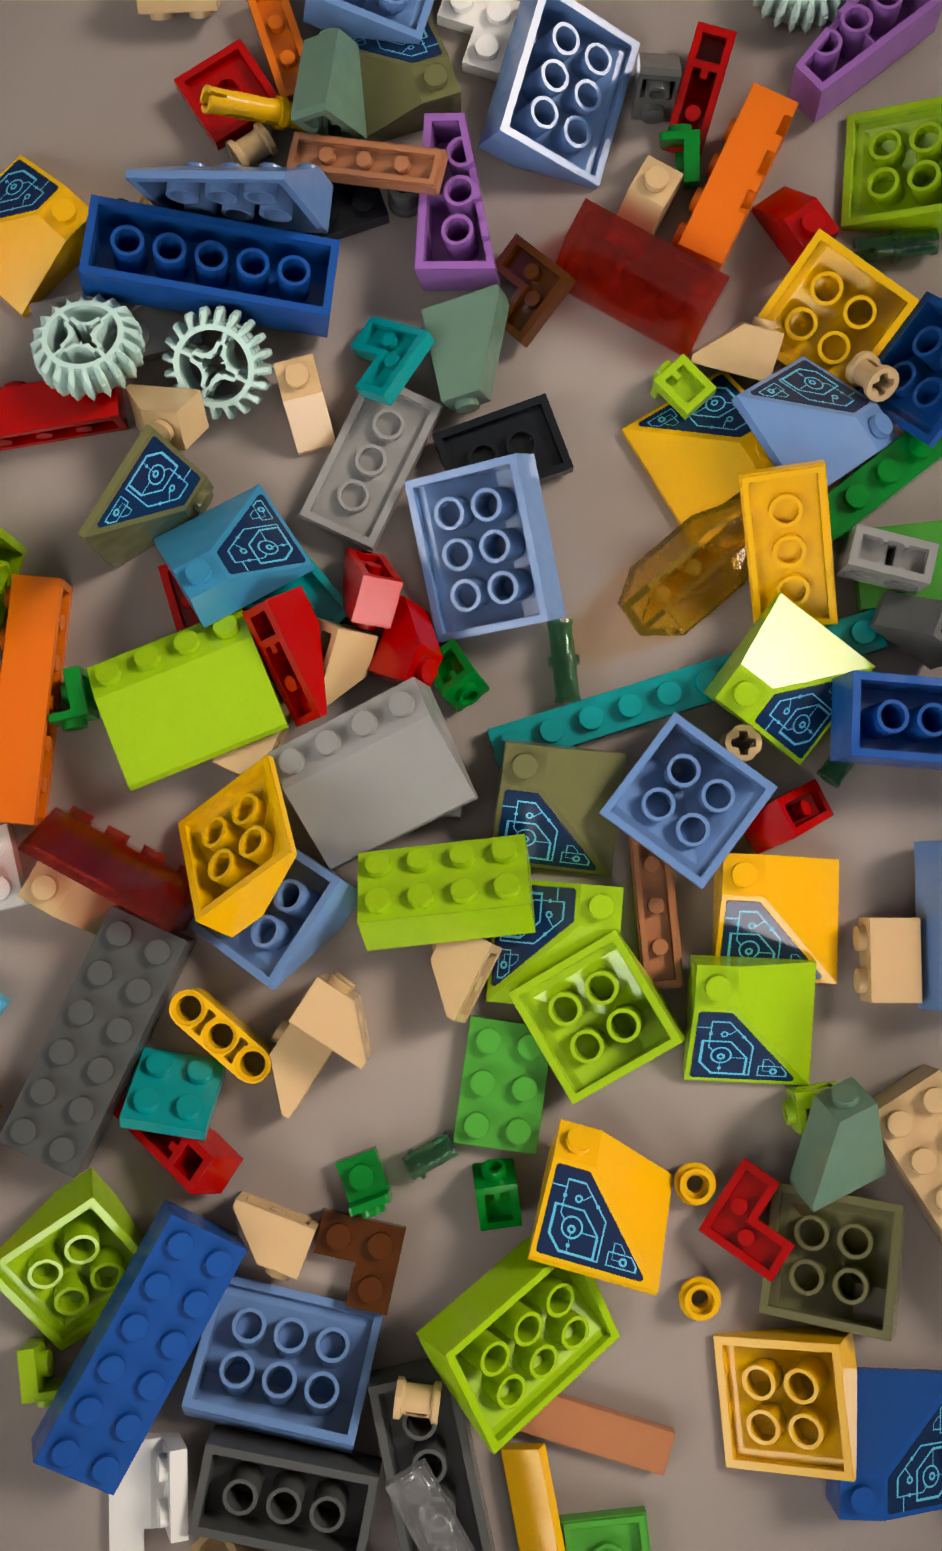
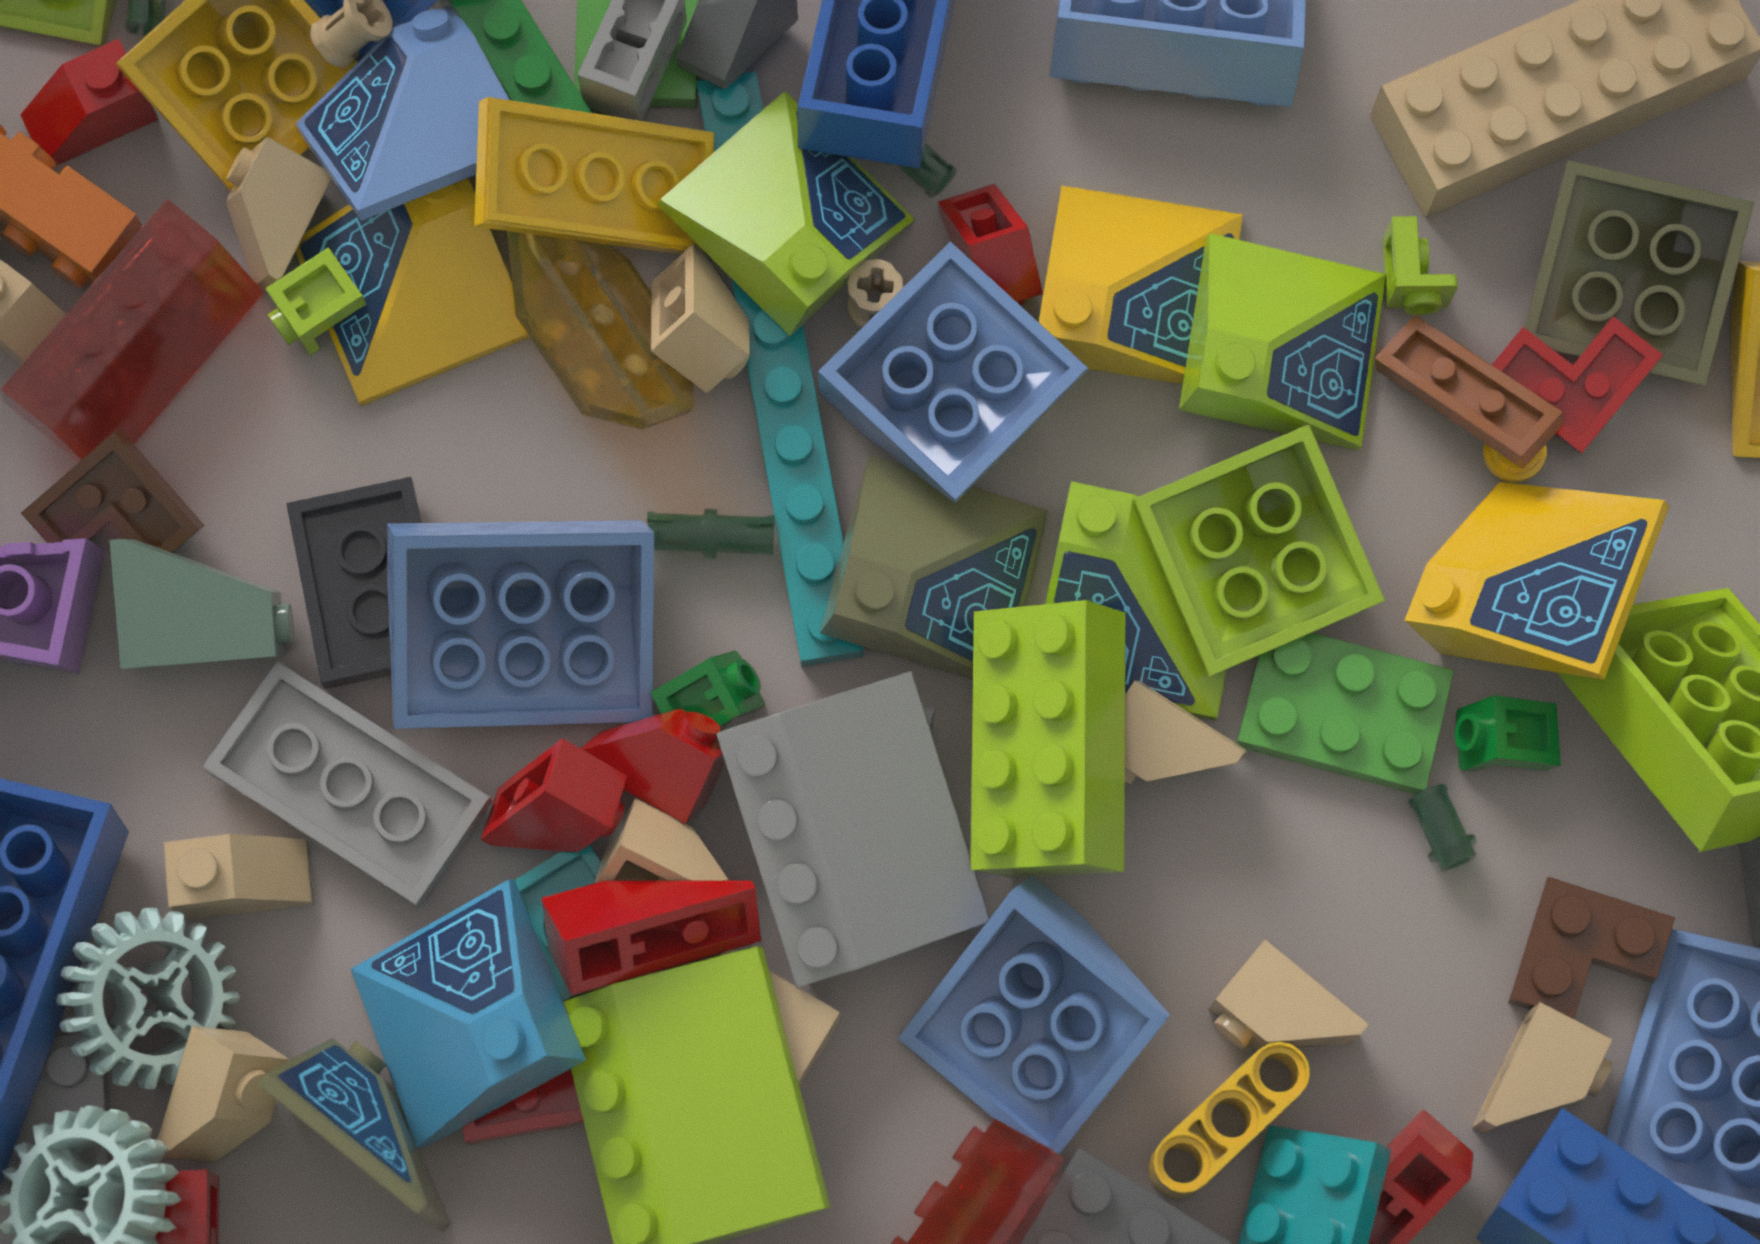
camera: 85 degrees left, 10 degrees down
(238, 850) = (941, 1041): yellow slope -> none
(335, 1017) = (1217, 931): tan slope -> none
(364, 1183) = (1475, 931): green bracket -> none
(394, 354) = (183, 715): teal plate -> none
(656, 917) = (1110, 453): nougat tile -> none
(702, 631) = (698, 321): none -> tan slope
(708, 1307) = (1690, 453): yellow plate -> none
(728, 1149) = (1469, 391): none -> dark orange plate
(838, 1145) = (1476, 235): sand green slope -> none
(888, 959) = (1216, 136): tan brick -> none

